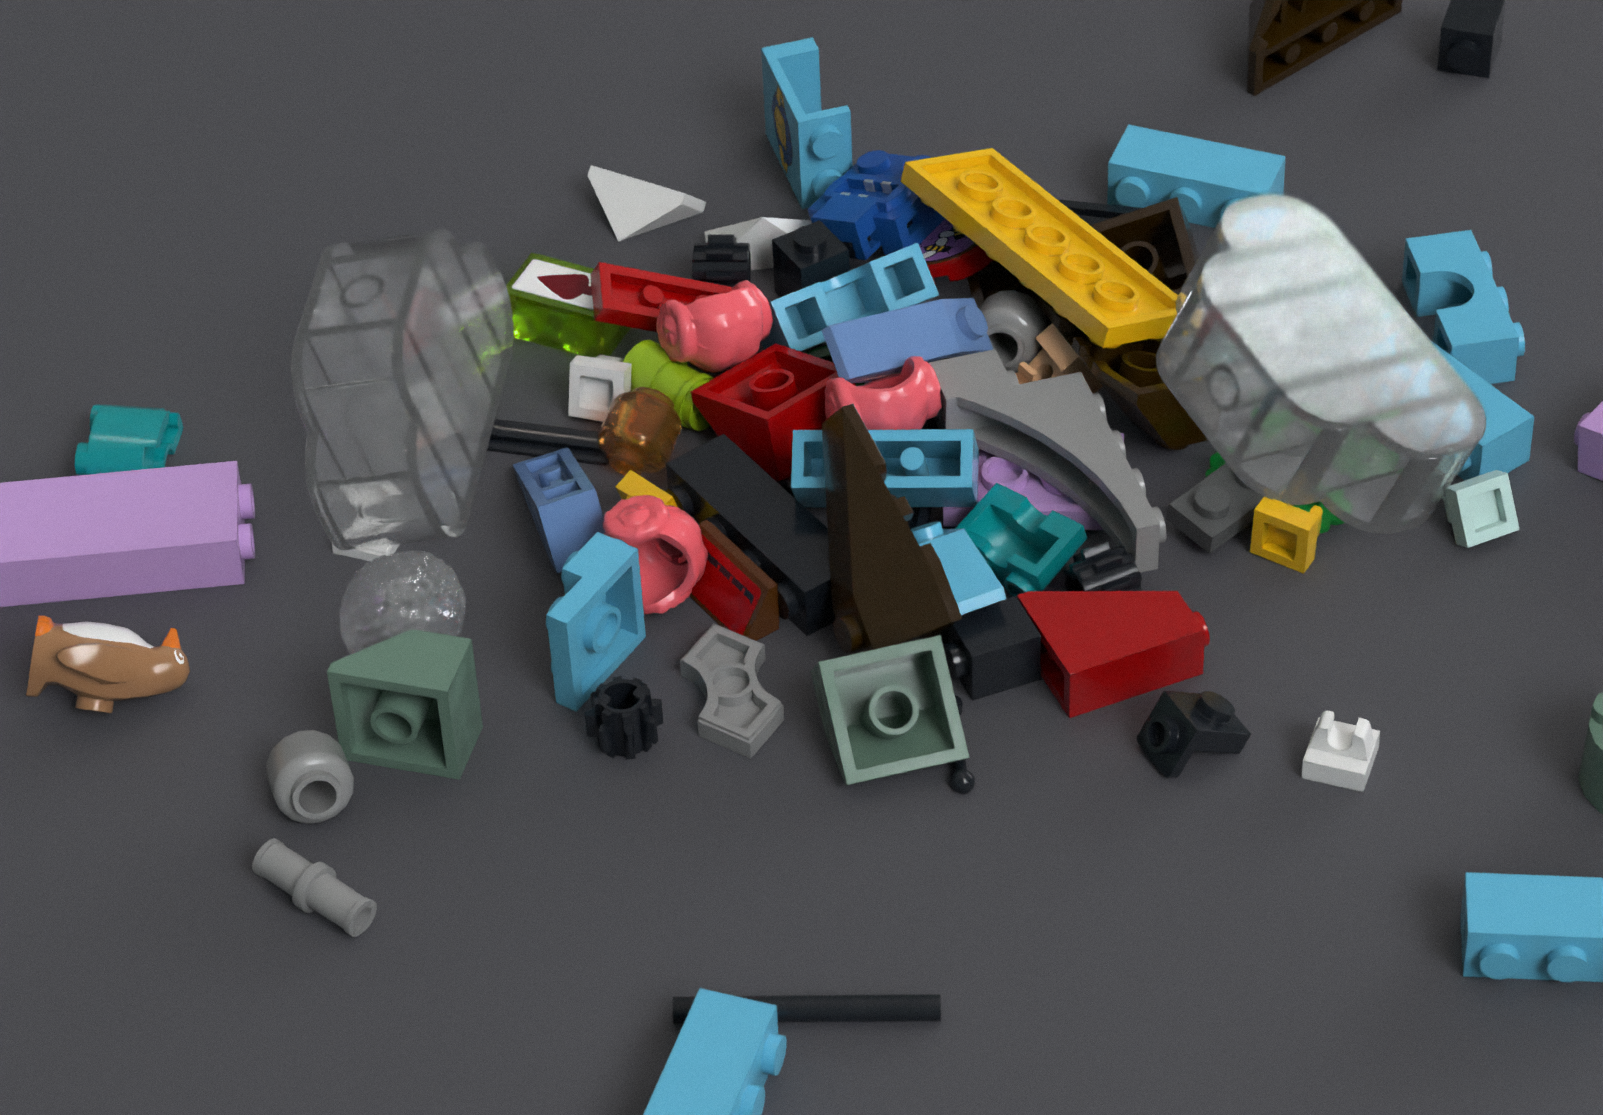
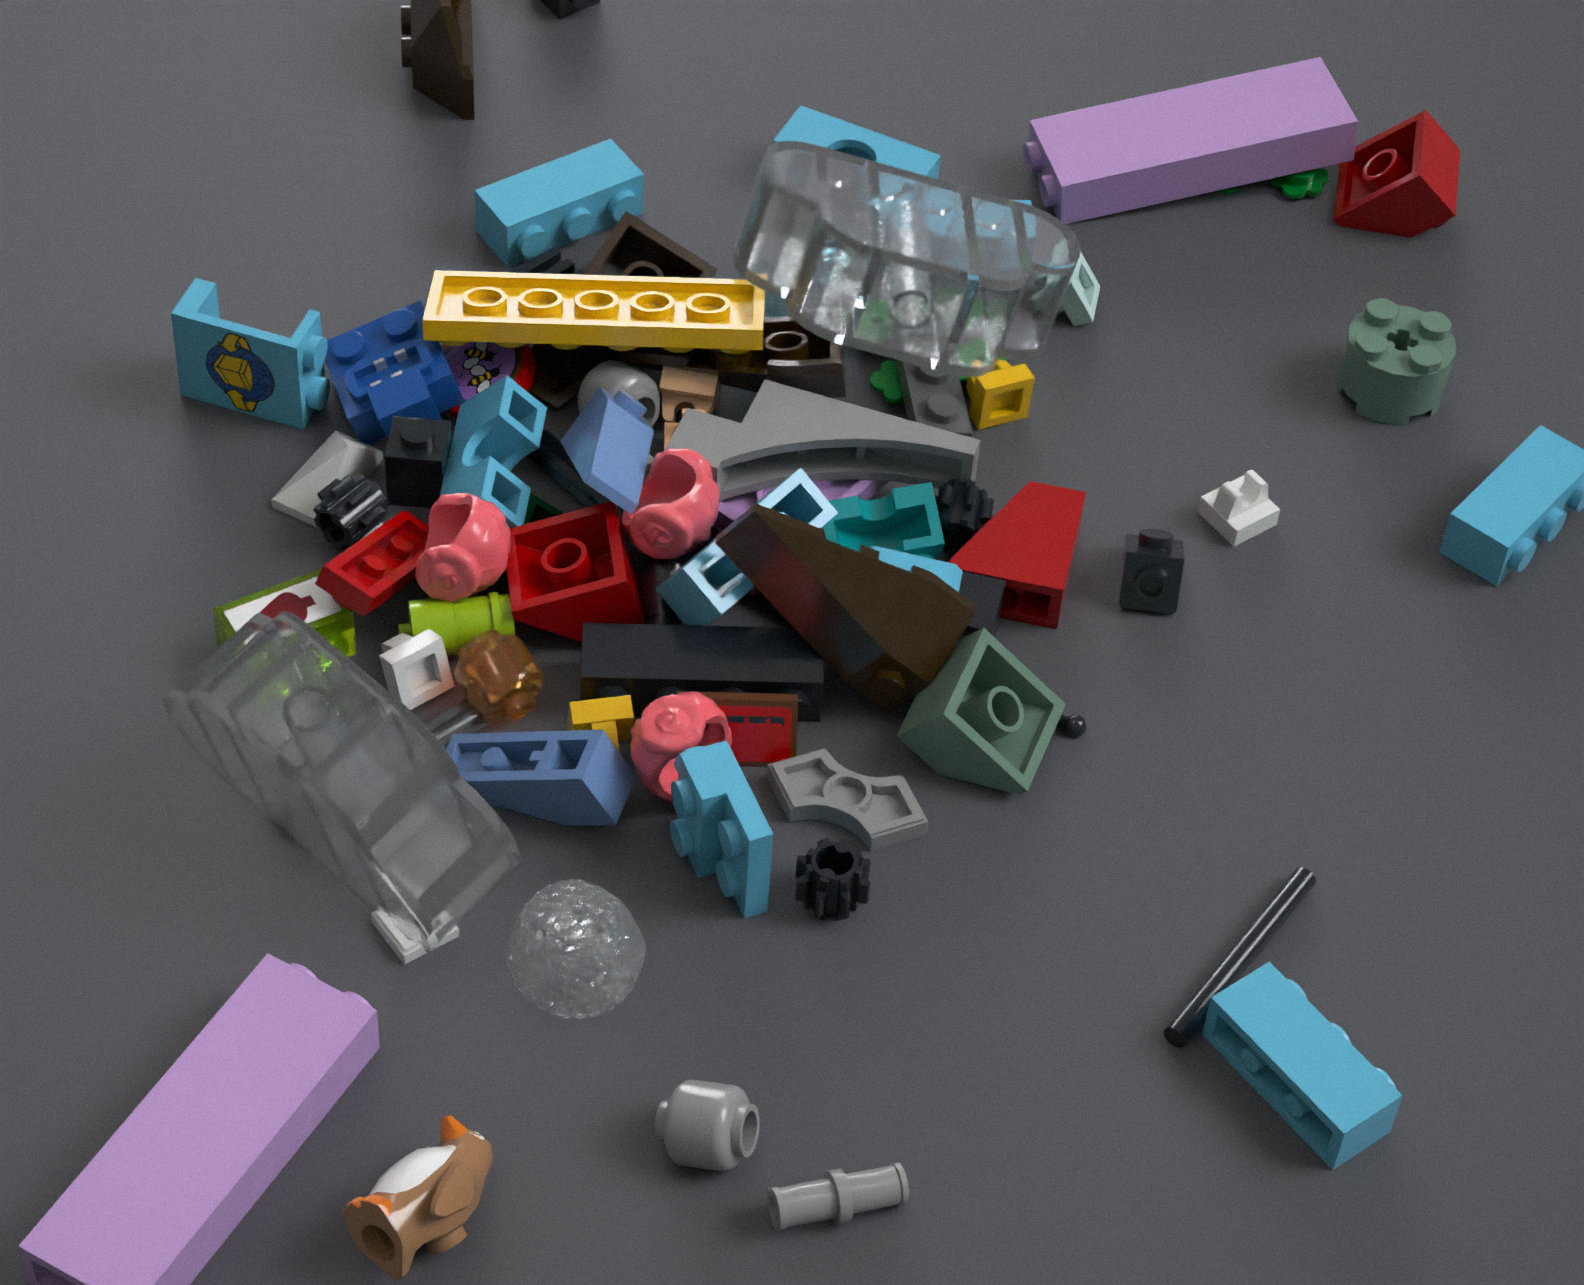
camera: 60 degrees left, 5 degrees up
(128, 439) = (127, 1028): teal cylinder -> none
(409, 703) = (720, 996): sand green slope -> none
(638, 205) = (192, 517): white slope -> none

